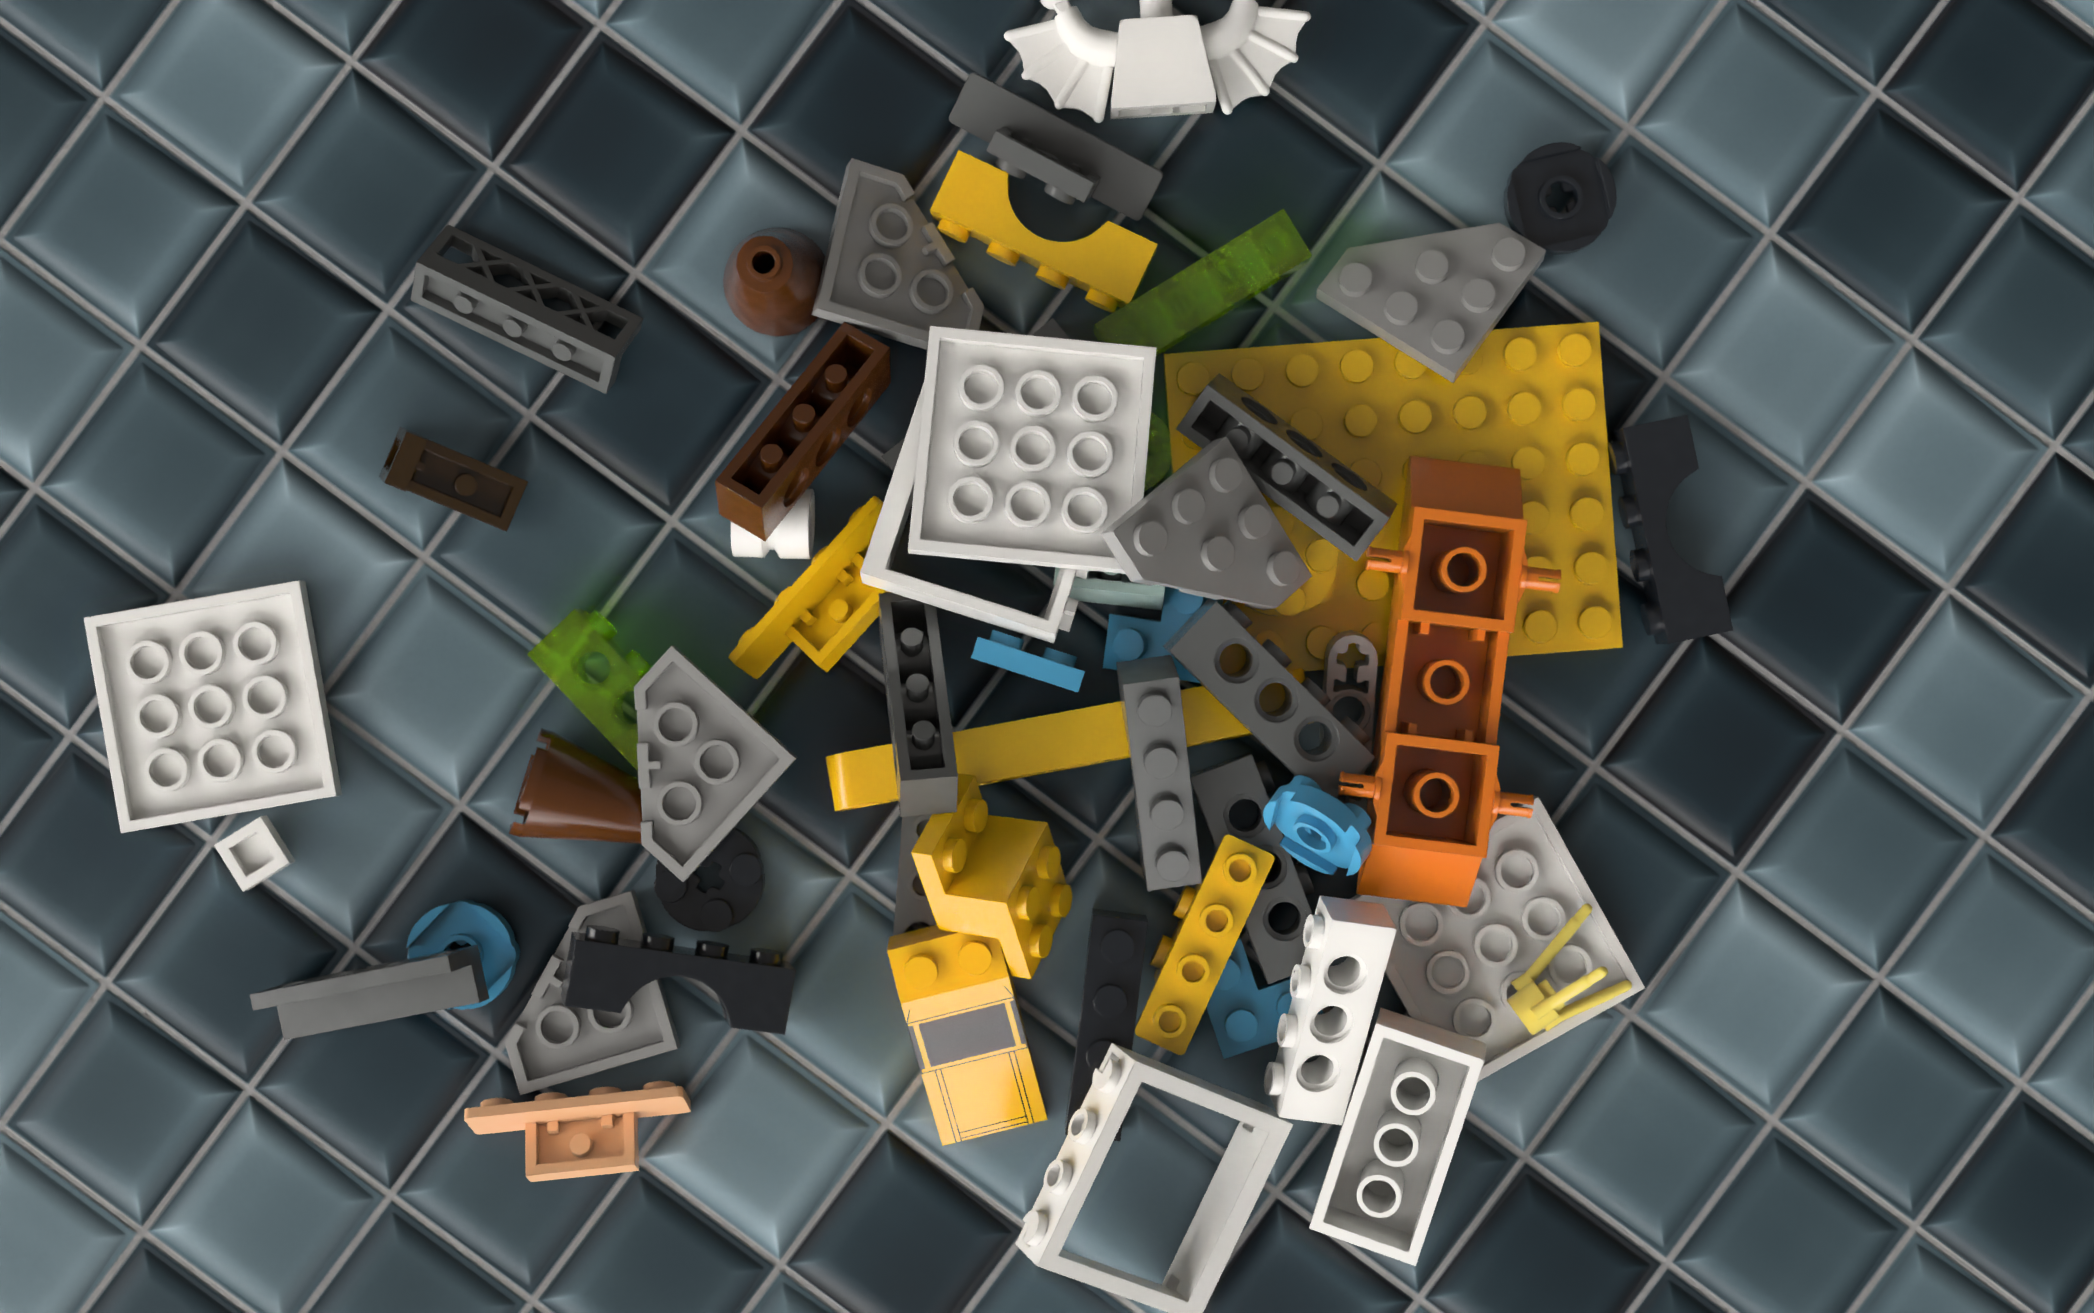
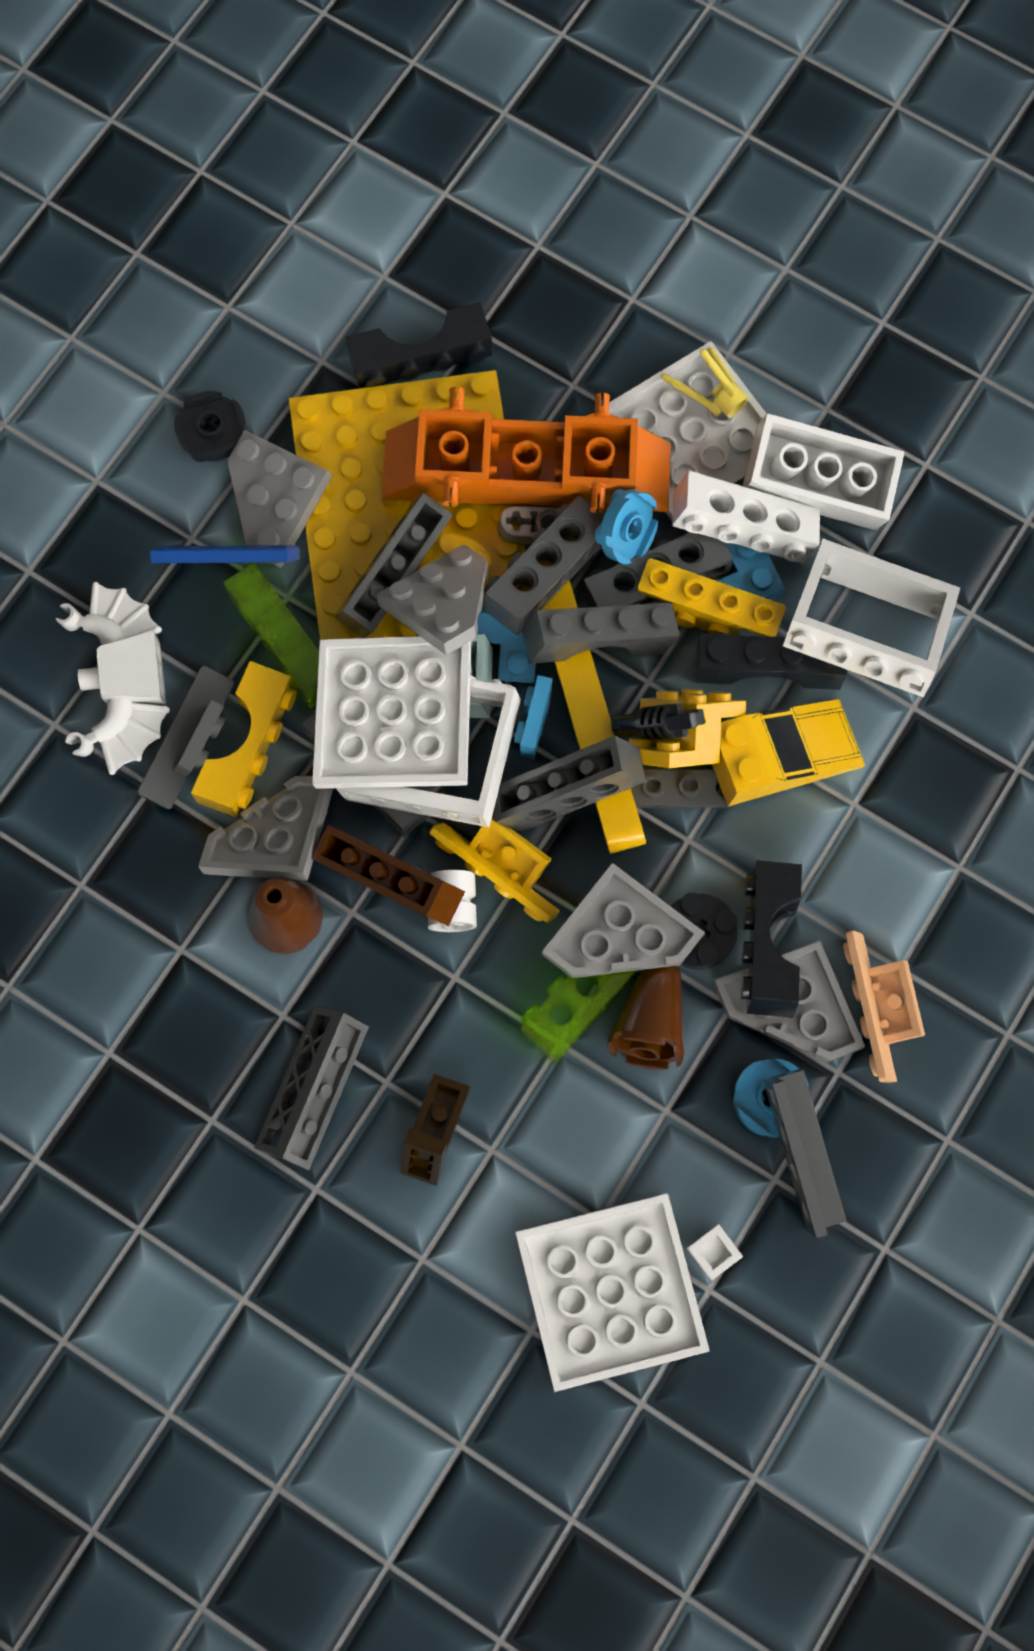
camera: 95 degrees left, 15 degrees down
(994, 845) = (658, 722): none -> black hinge
(1333, 213) = (225, 554): none -> blue tile

